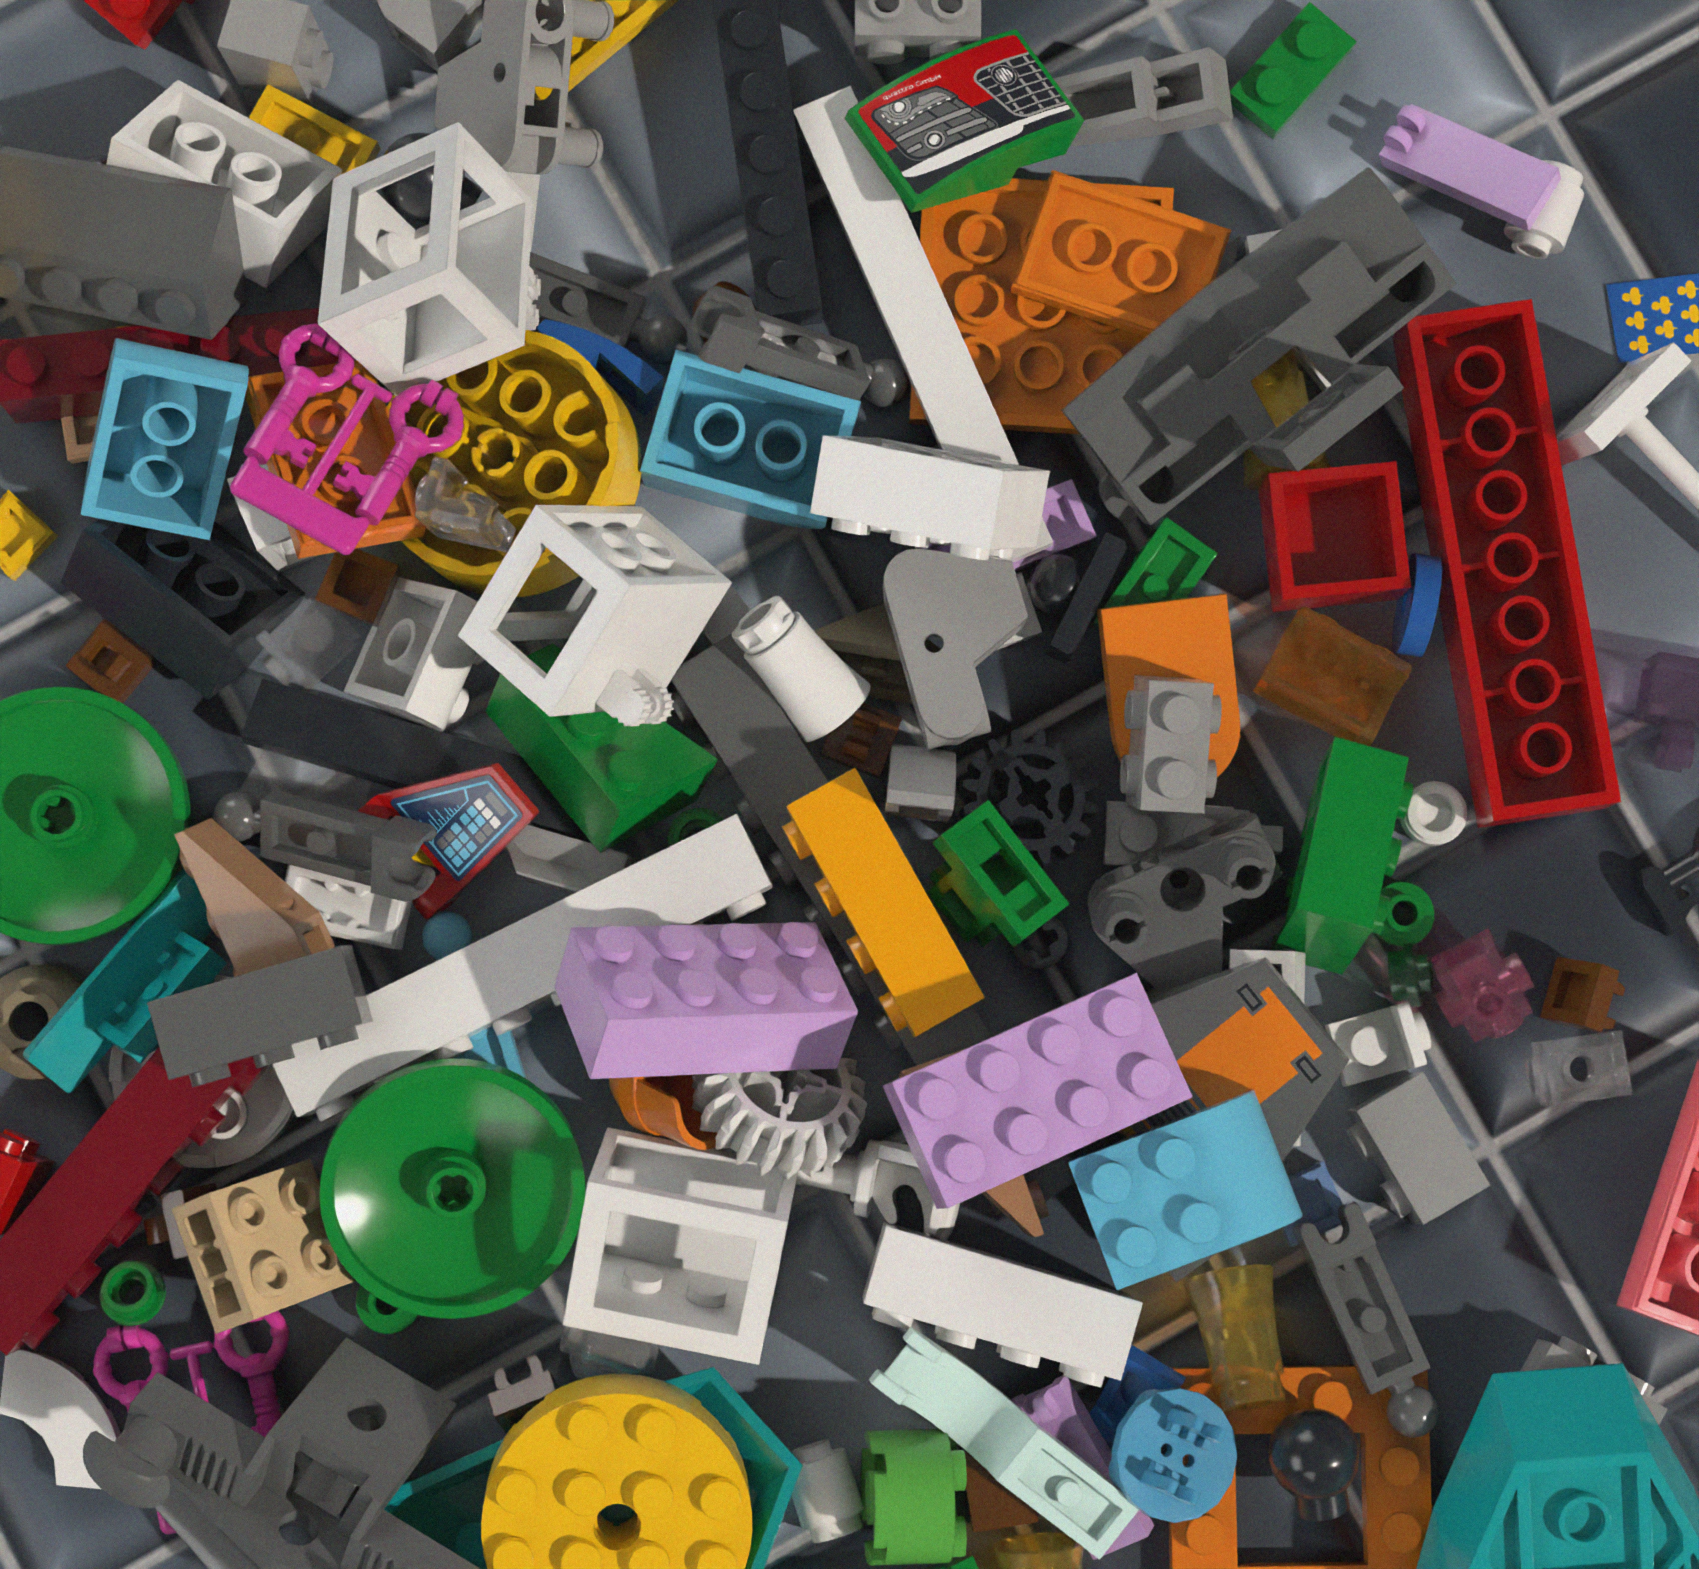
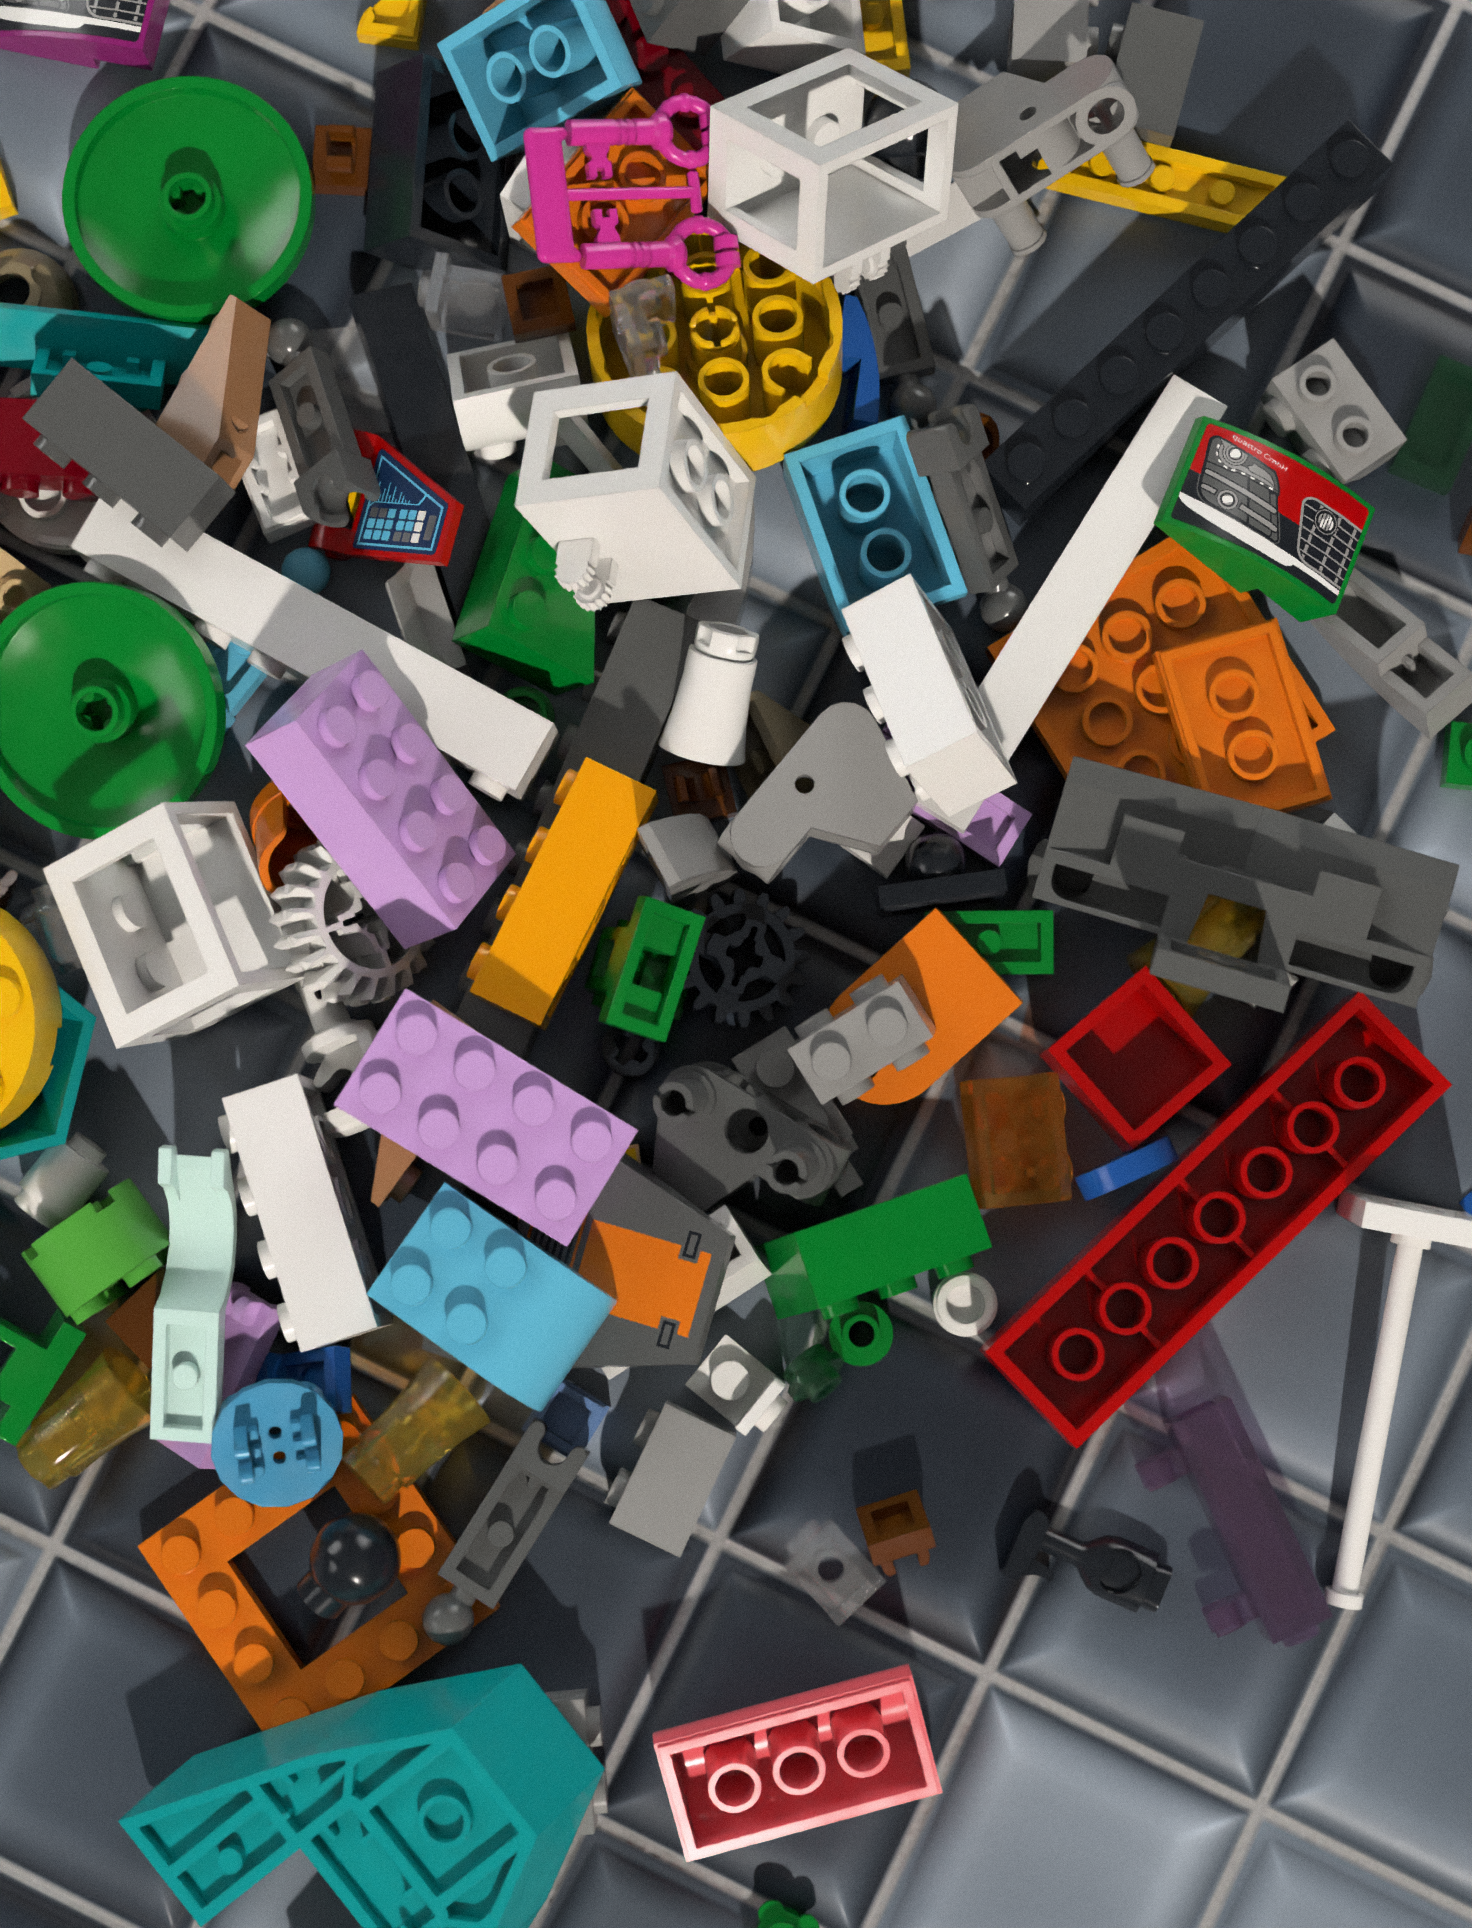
camera: 60 degrees right, 0 degrees up
(1483, 987) = (843, 1440): clear pink brick -> none

